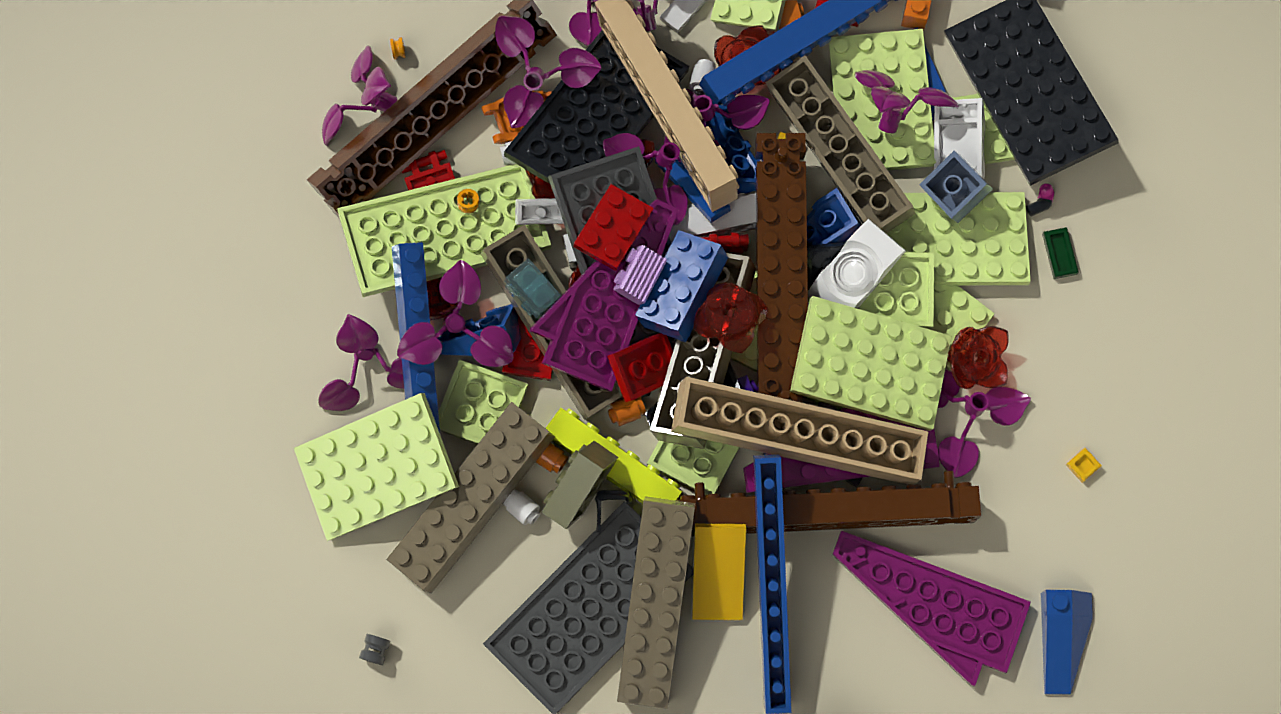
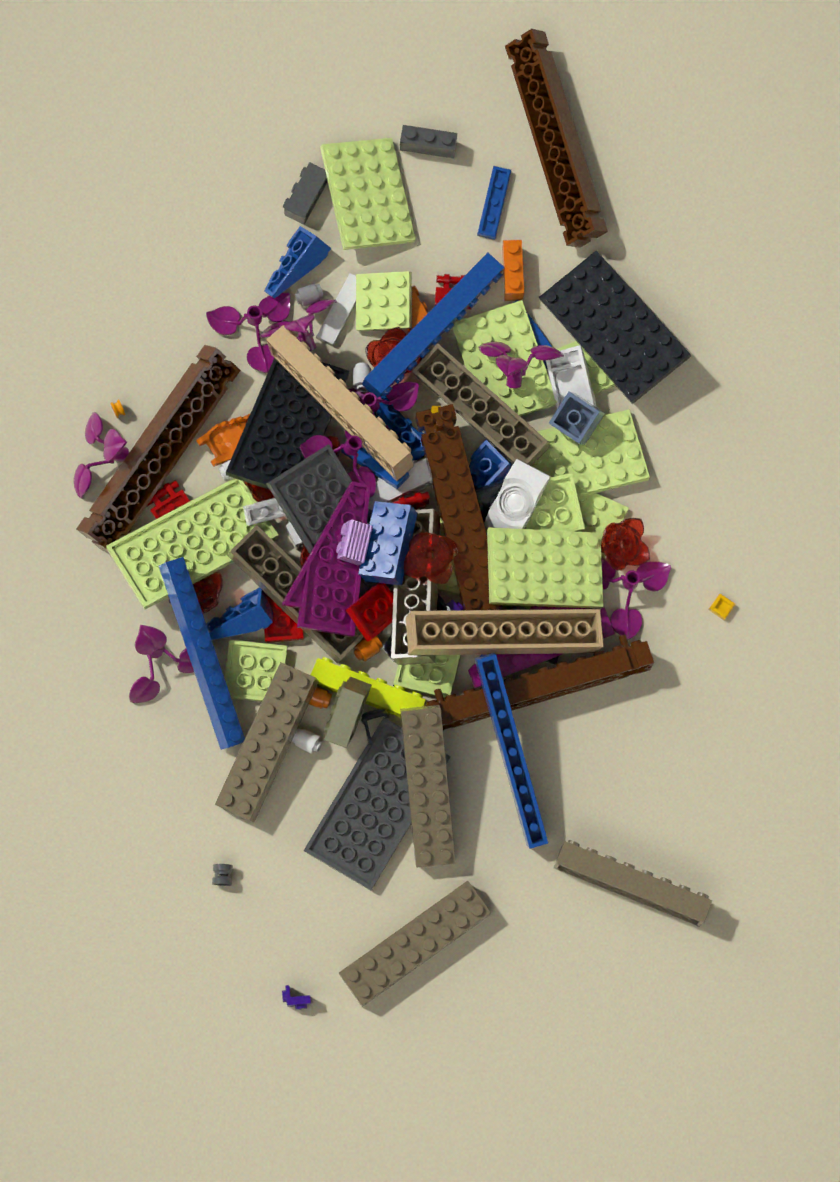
camera: 20 degrees left, 0 degrees up
(376, 467) = (188, 736): yellowish green plate -> none
(461, 286) = (222, 583): magenta plant -> none
(470, 208) = (205, 522): light orange bush -> none
(531, 288) = (275, 572): clear light blue brick -> none
(576, 68) = (227, 430): magenta plant -> none
(613, 227) = (325, 511): red plate -> none
(718, 571) = (468, 752): yellow tile -> none
(952, 614) = (646, 740): magenta wing -> none
(1044, 200) = (645, 412): arm -> none
(1060, 253) = (667, 449): dark green tile -> none
(1064, 633) = (736, 732): blue wedge -> none

